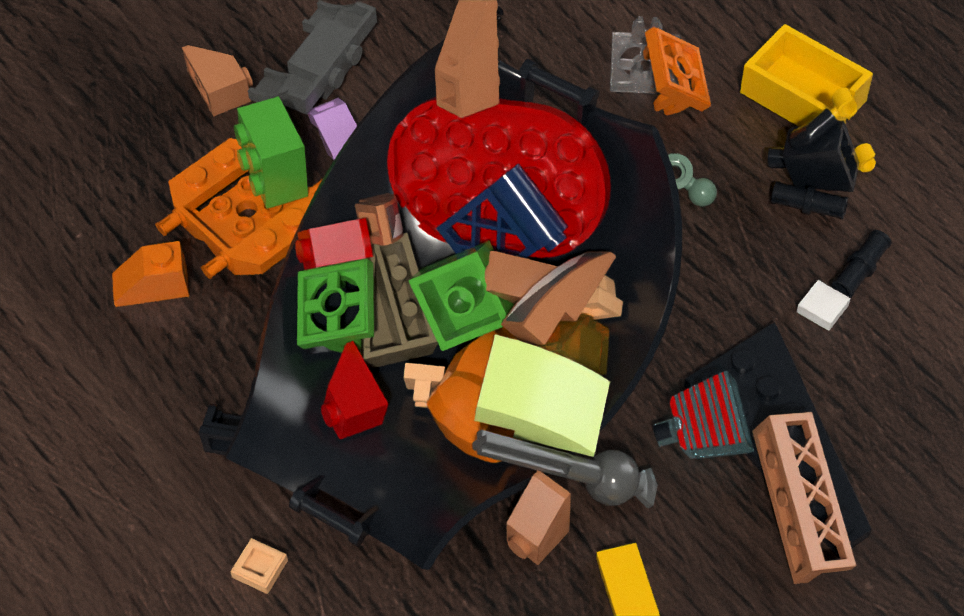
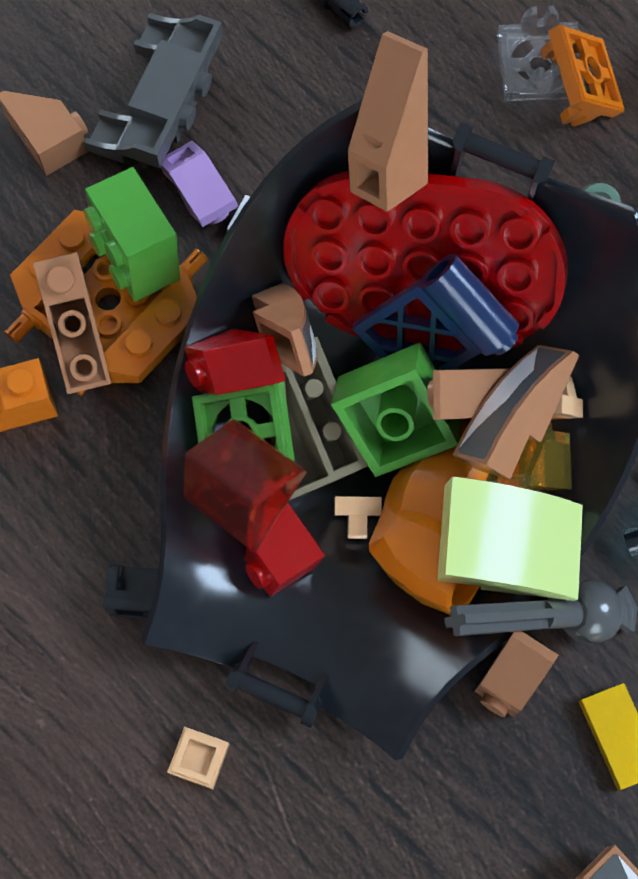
camera: 10 degrees left, 15 degrees up
(211, 214) = (72, 322): none -> nougat slope
(323, 334) = (240, 482): none -> clear red slope

